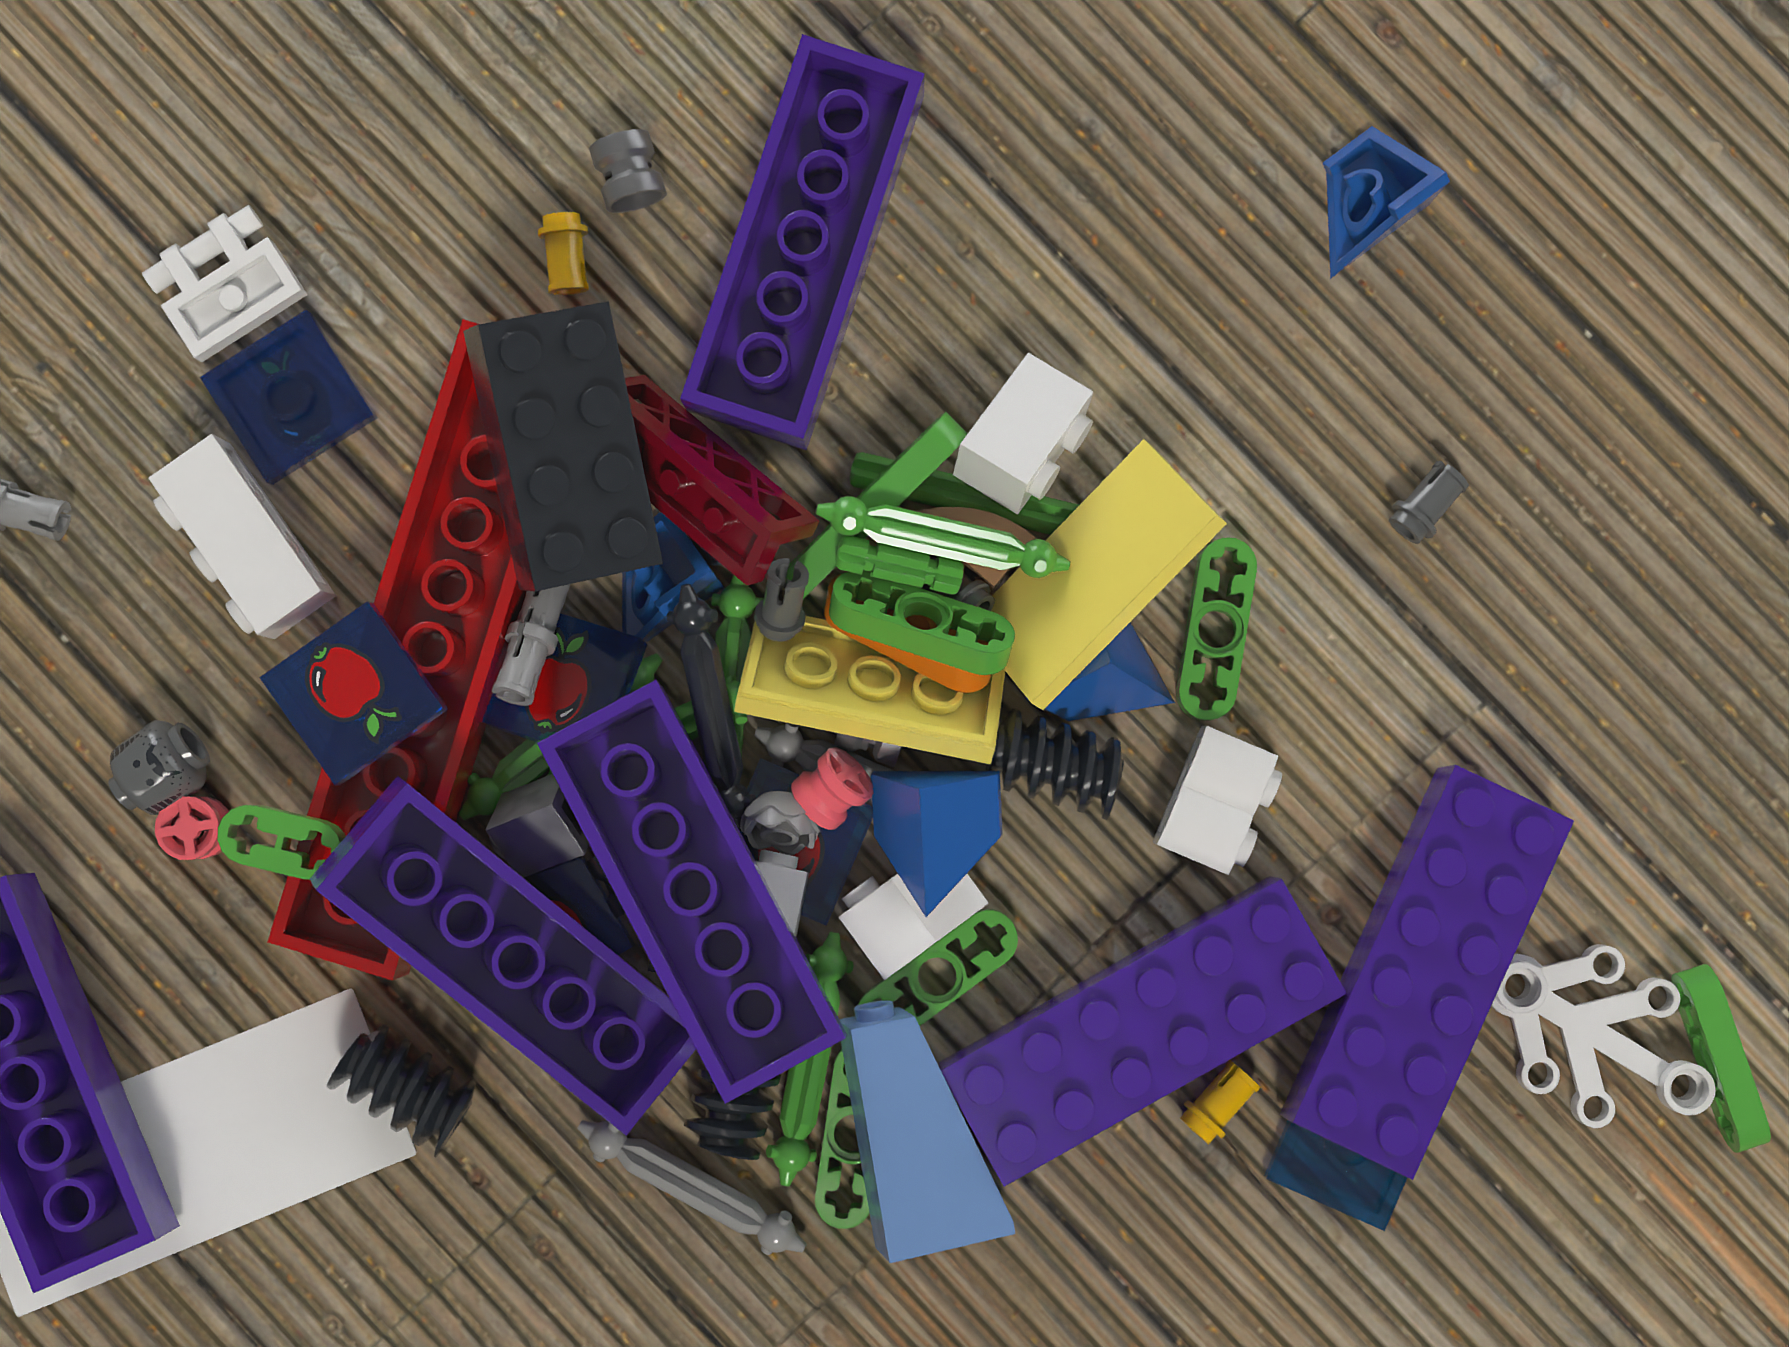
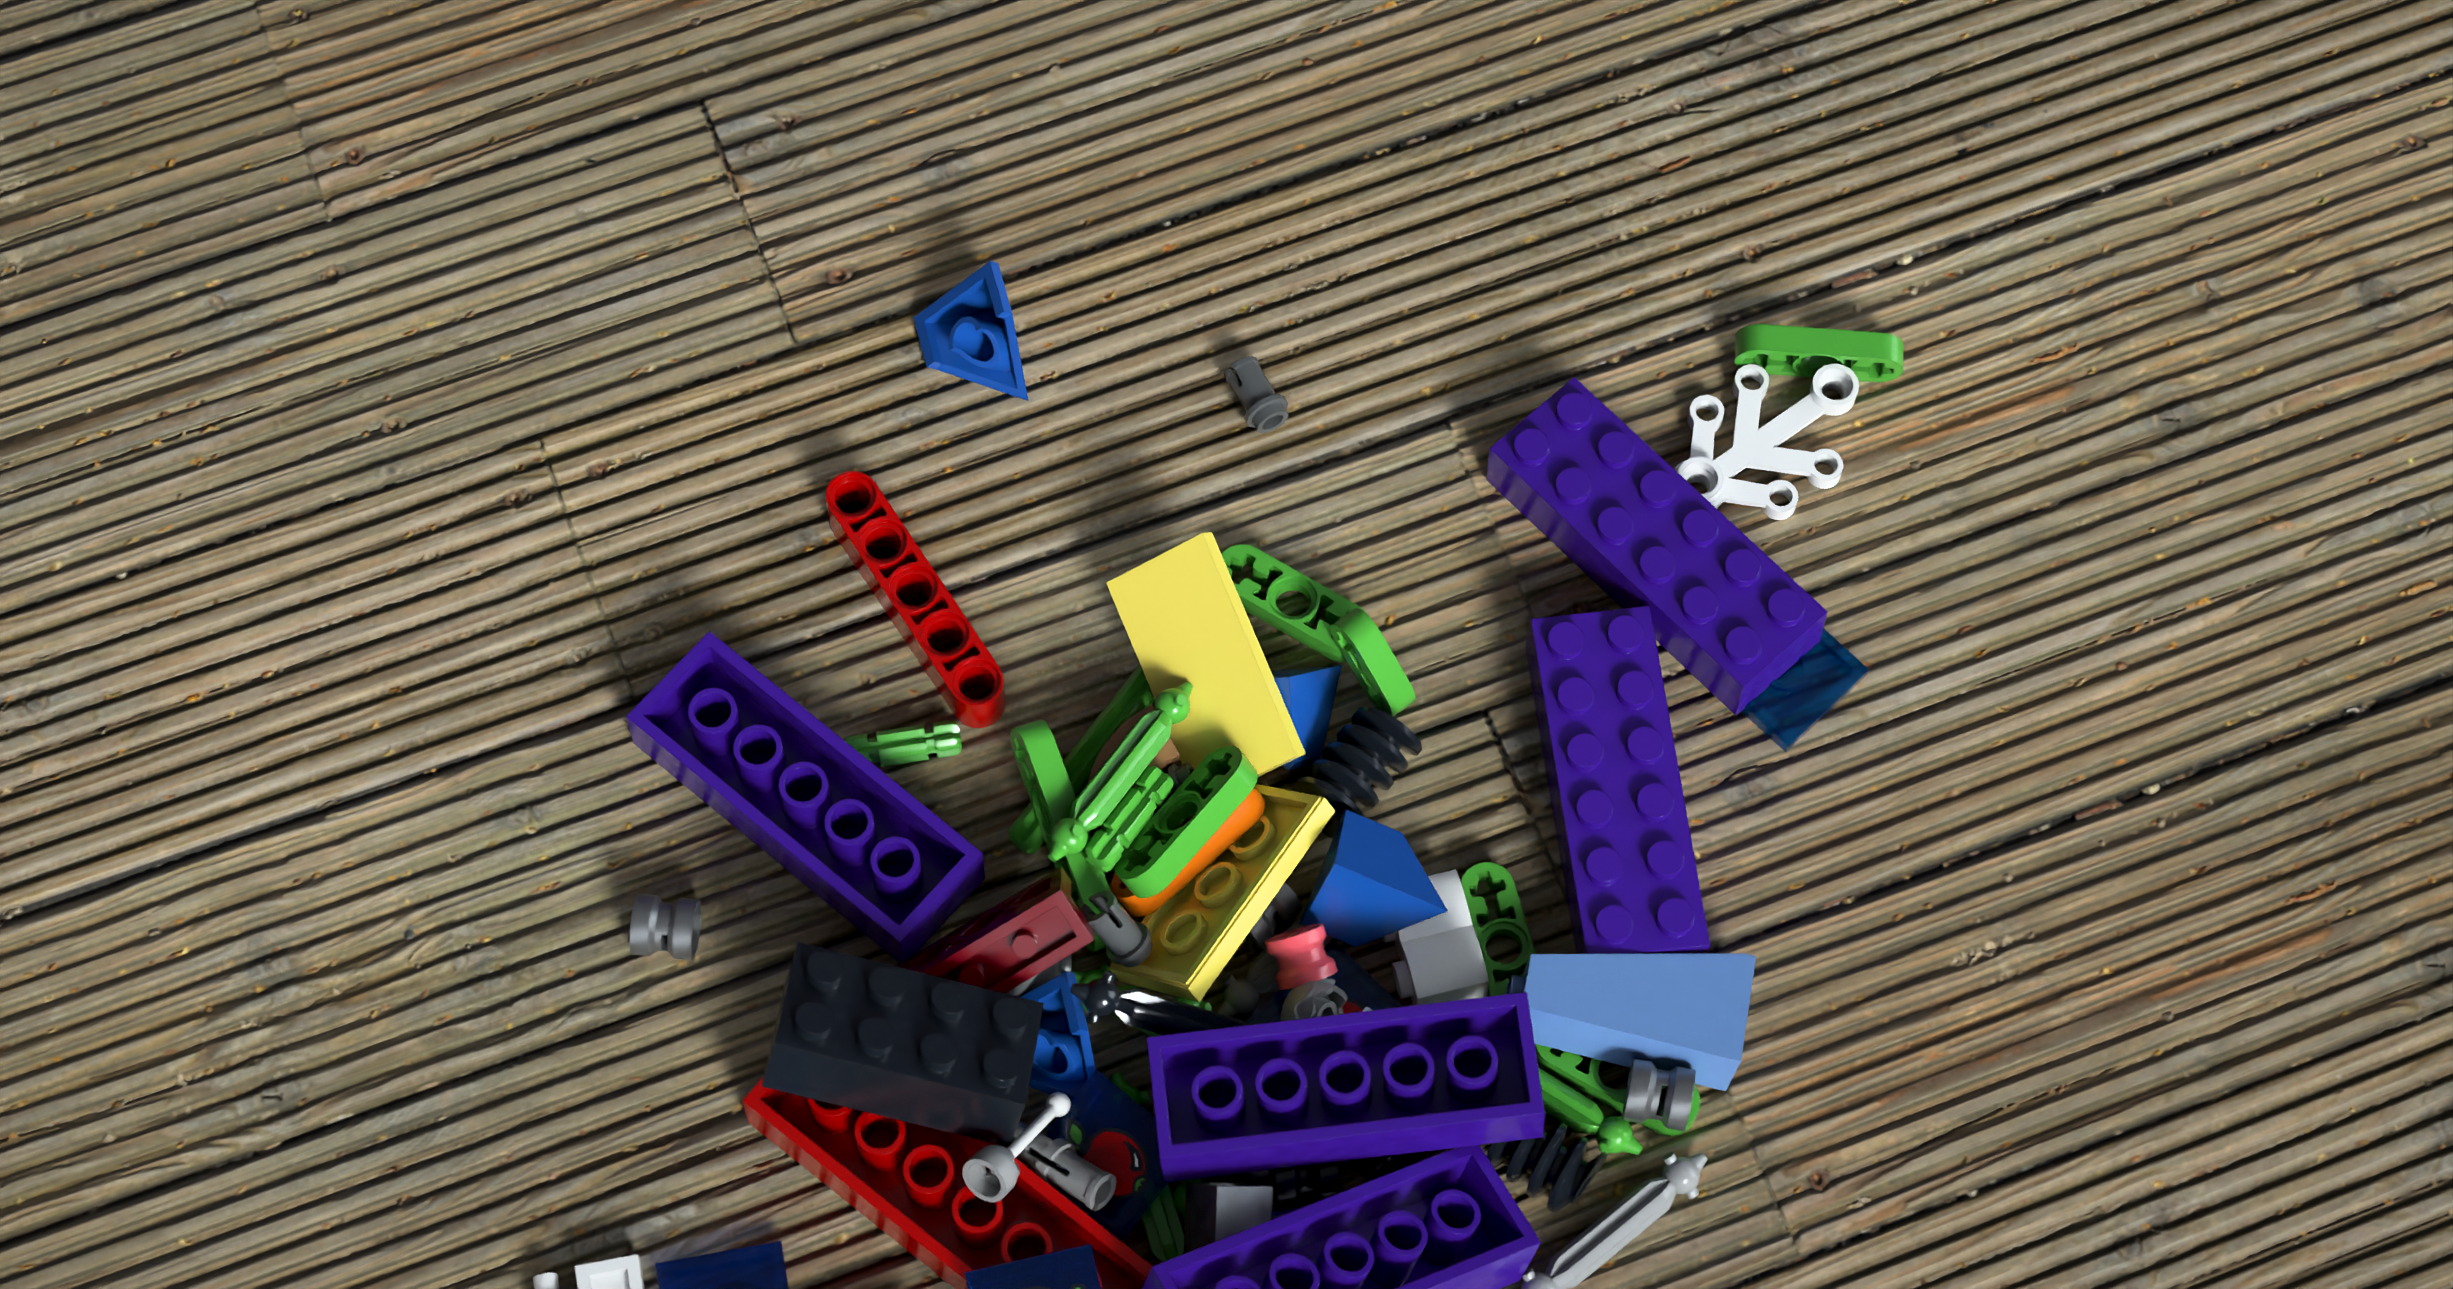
camera: 75 degrees left, 20 degrees down
(480, 587) = (1003, 1172): none -> light grey hinge
(564, 252) = (711, 1013): yellow pin -> none
(832, 1190) = (1644, 1094): none -> flat silver wheel
(907, 313) = (909, 743): none -> bright green axle
(1024, 433) = (1058, 680): white brick -> none
(1068, 229) = (921, 624): none -> red beam
(1176, 735) = (1373, 662): none -> bright green beam
(1217, 800) = (1443, 657): white brick -> none
(1219, 1102) = (1709, 762): yellow pin -> none

